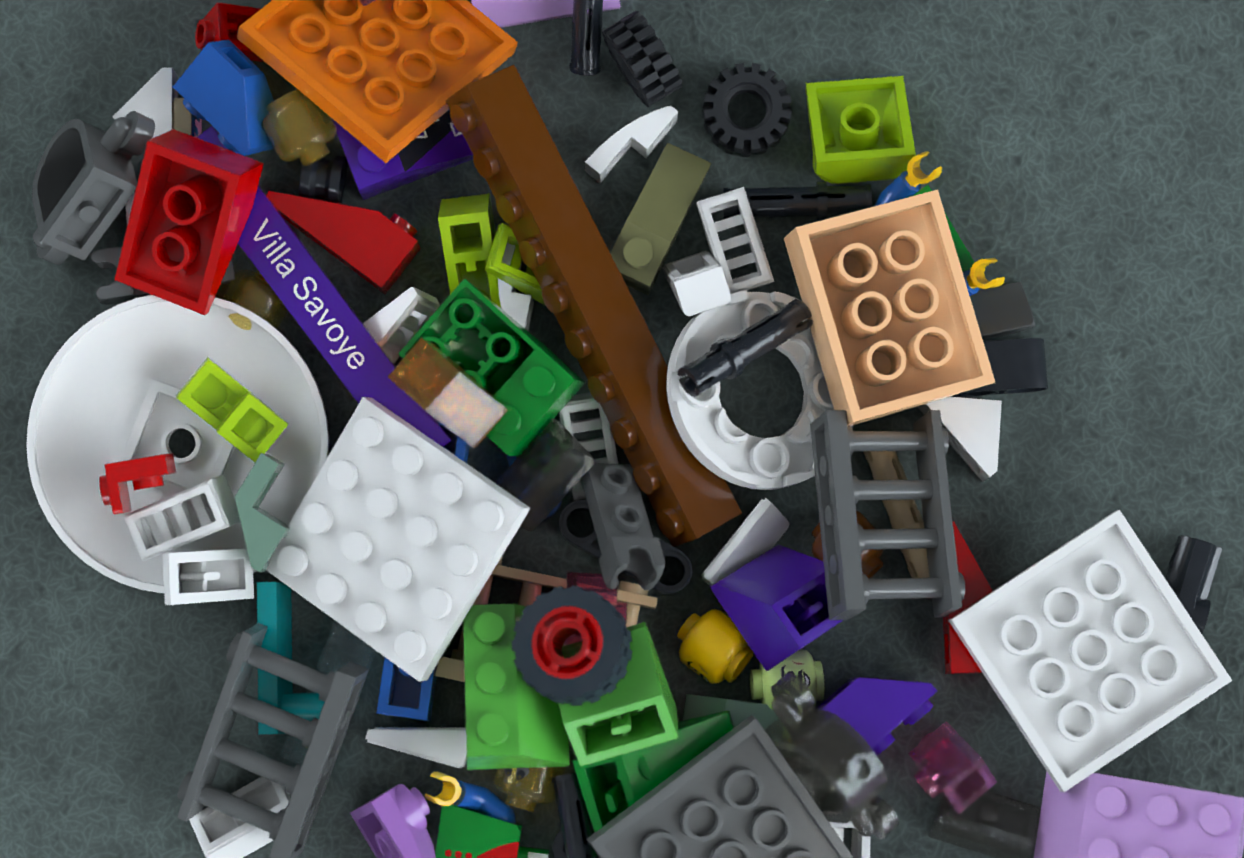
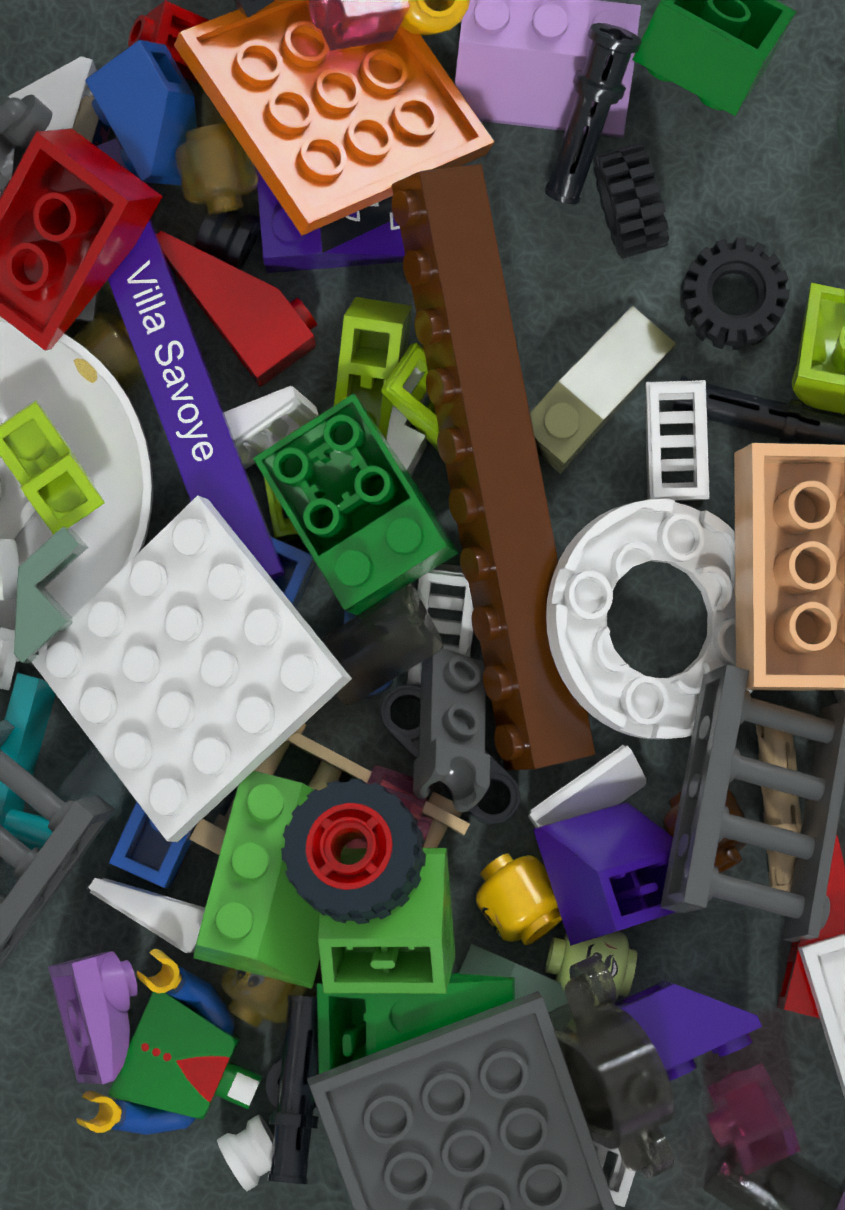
camera: 20 degrees right, 0 degrees up
(447, 392) = (295, 518): clear orange slope -> none
(640, 134) = (605, 287): white slope -> none
(698, 283) = (621, 476): white slope -> none
(731, 356) = (635, 570): black pin -> none

